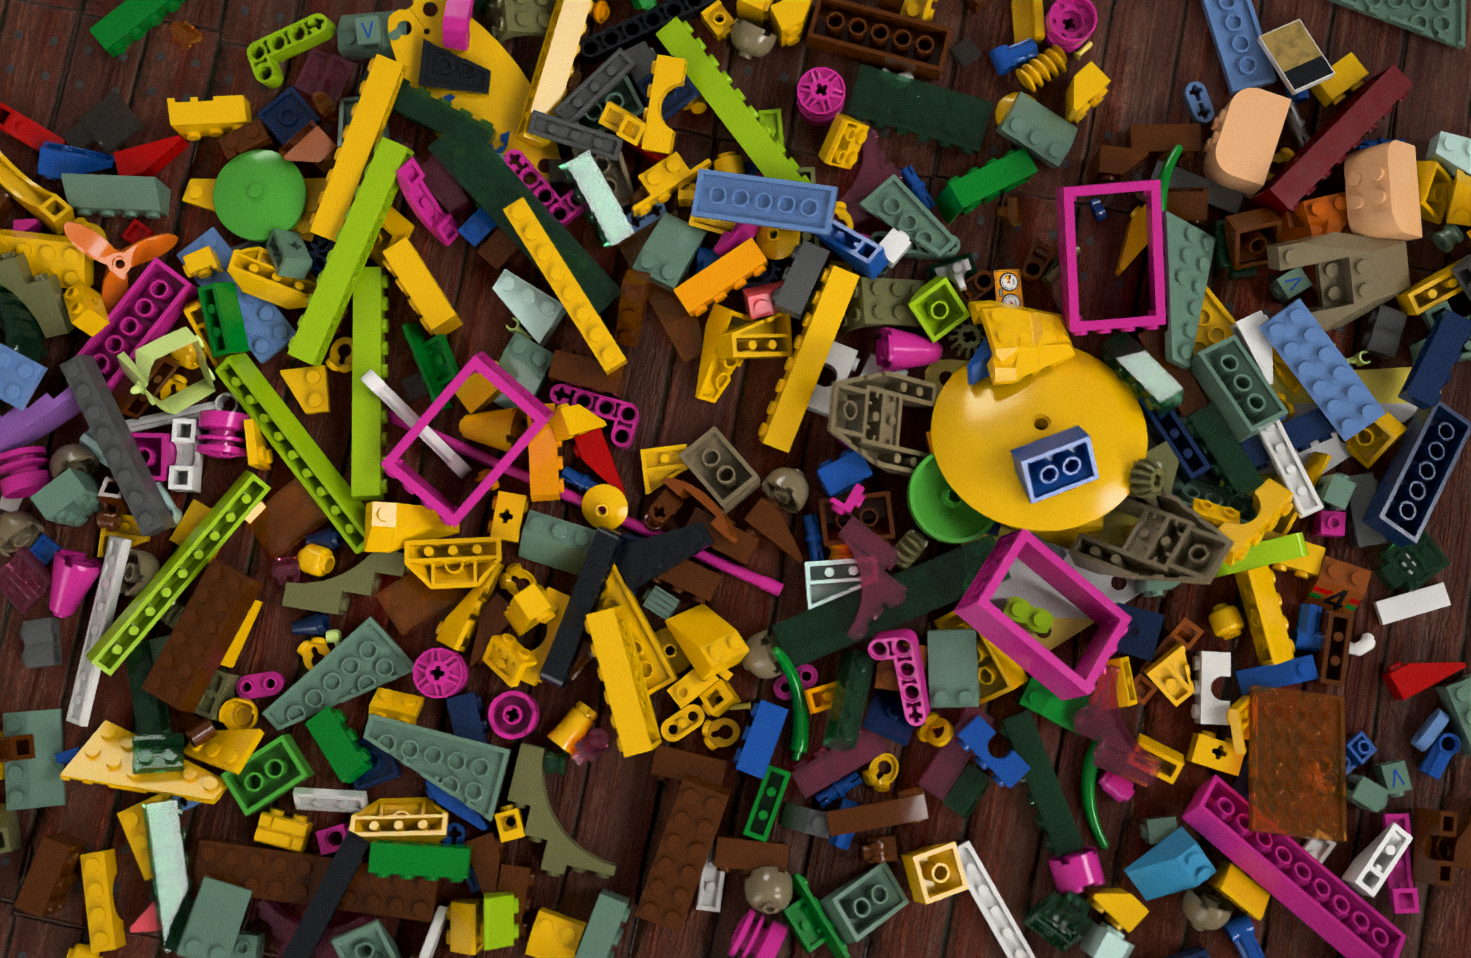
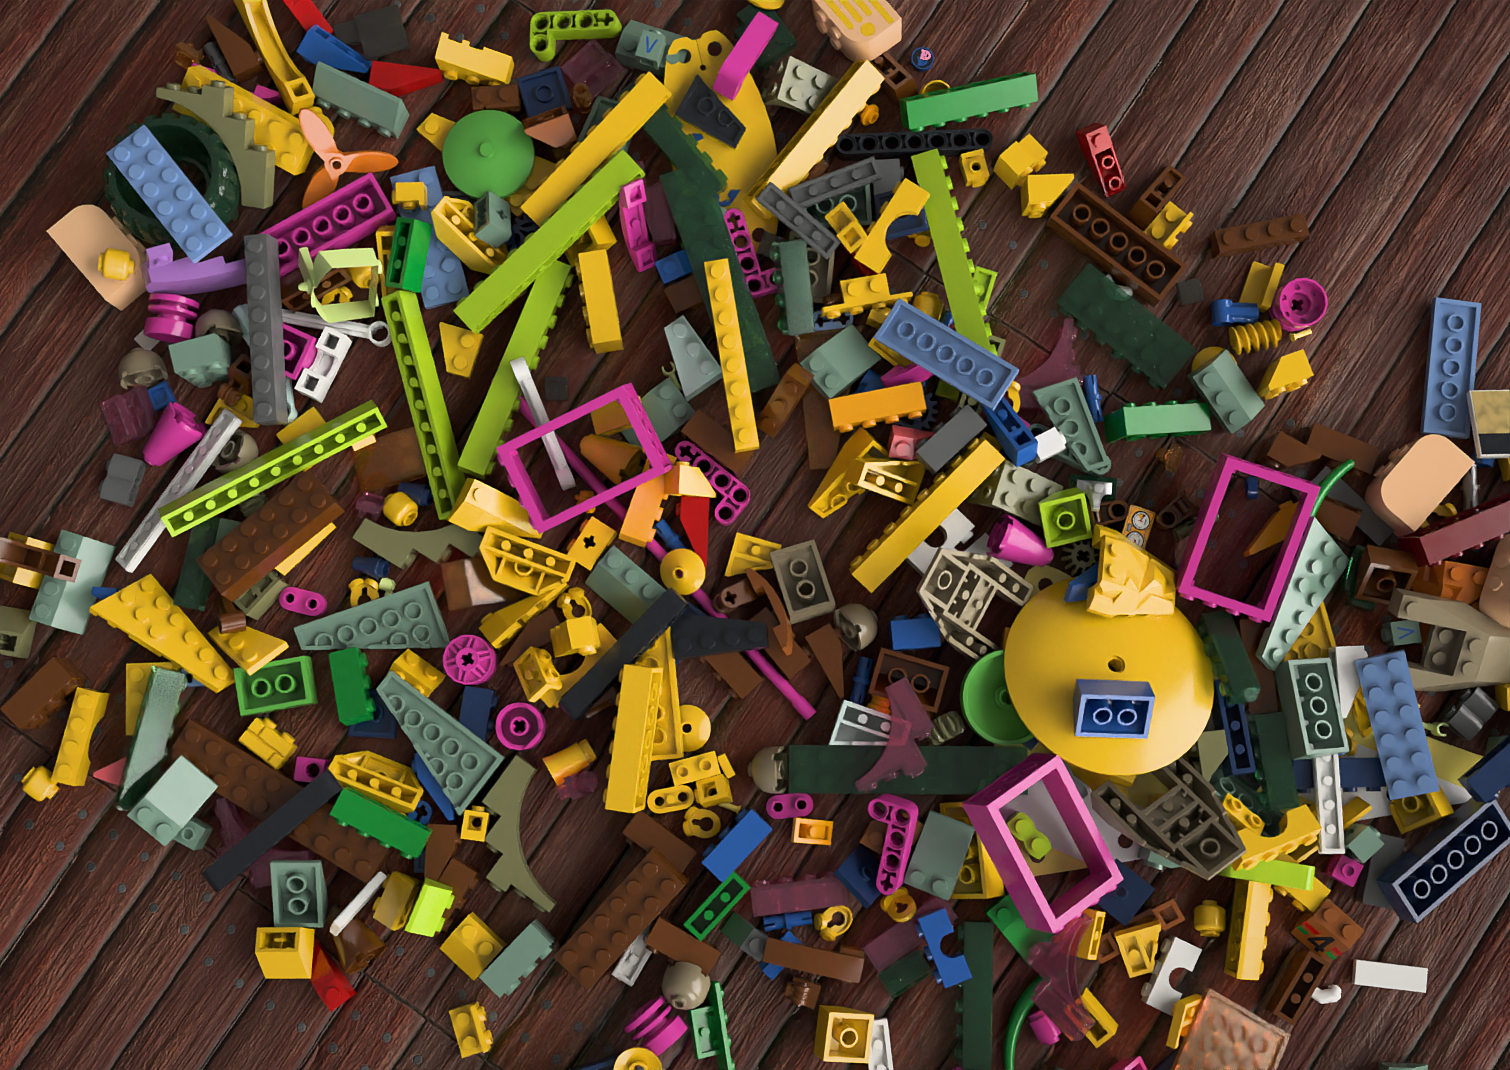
camera: 15 degrees right, 0 degrees up
(86, 308) = (289, 193): yellow brick -> none
(136, 231) = (363, 141): red tile -> none
(158, 753) = (185, 625): clear green bracket -> none
(222, 434) = (364, 358): dark pink wheel -> none
(238, 714) = (272, 619): yellow hair -> none
(257, 449) = (389, 389): yellow wing -> none
(329, 799) = (321, 732): white tile -> none
(333, 361) = (492, 333): yellow piece -> none
(433, 359) = (583, 371): green bracket -> none
(556, 763) = (540, 786): clear green wheel -> none
(660, 602) = (696, 680): sand green brick -> none
(707, 640) = (724, 733): yellow slope -> none
(751, 39) = (997, 198): dark tan cylinder -> none
(779, 247) = (942, 401): yellow dish -> none
(800, 727) = (778, 845): green animal -> none
(815, 108) = (1031, 287): dark pink wheel -> none
(843, 141) = (1042, 327): yellow slope -> none
(849, 701) = (831, 844): clear green brick -> none
(854, 499) = (915, 661): dark pink bracket -> none
(864, 903) = (767, 1035): sand green slope -> none
(1147, 478) = (1191, 757): olive gear -> none
(1201, 753) = (1135, 1029): yellow brick -> none
(1202, 100) = (1391, 428): medium blue beam -> none
(1286, 673) = (1253, 992): blue slope -> none
(1306, 634) = (1279, 962): blue piece -> none
(1411, 564) = (1403, 939): clear green piece -> none
(1411, 678) = (1360, 1045): red slope -> none

